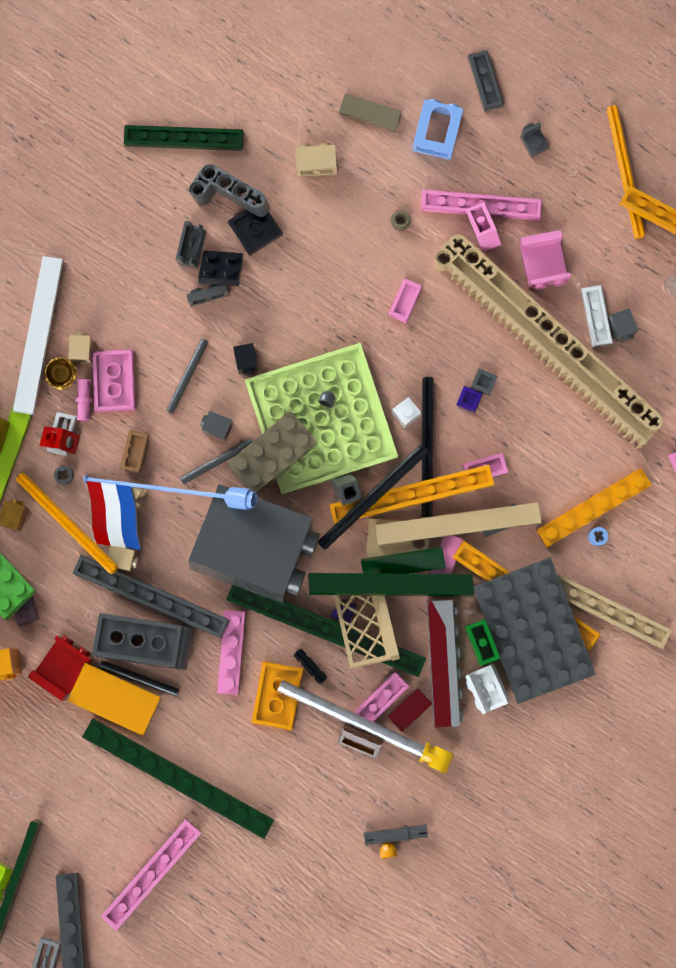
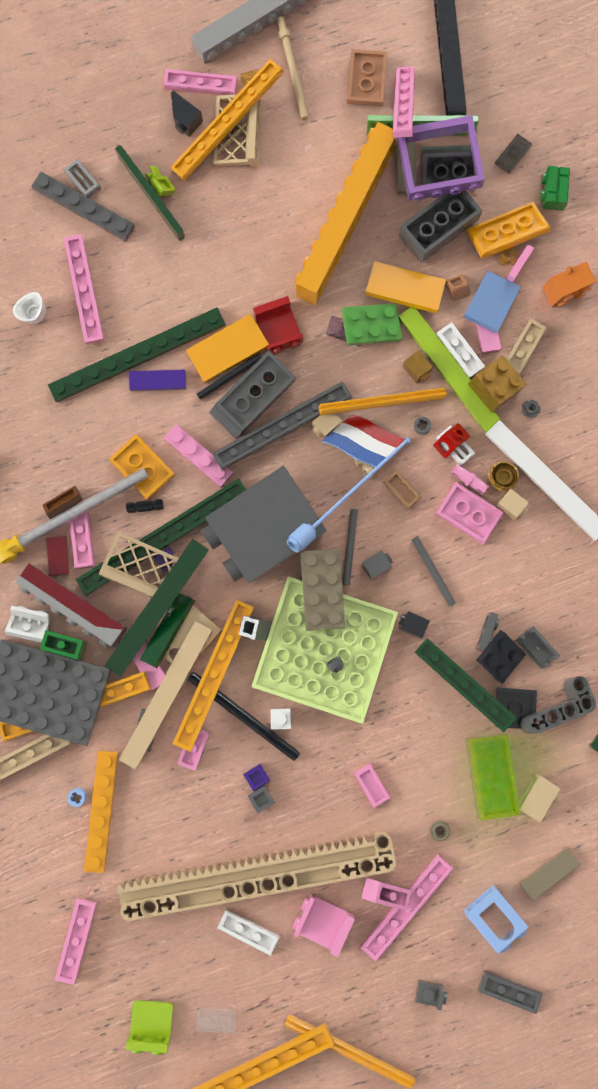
camera: 125 degrees right, 0 degrees up
(188, 741) = (157, 380): none -> dark purple tile
(205, 909) = (30, 308): none -> white helmet
(265, 281) = (465, 685): none -> dark green plate
(325, 208) = (492, 776): none -> clear neon green brick
(372, 497) = (233, 644): black axle -> none
(623, 325) = (224, 947): dark grey brick -> none

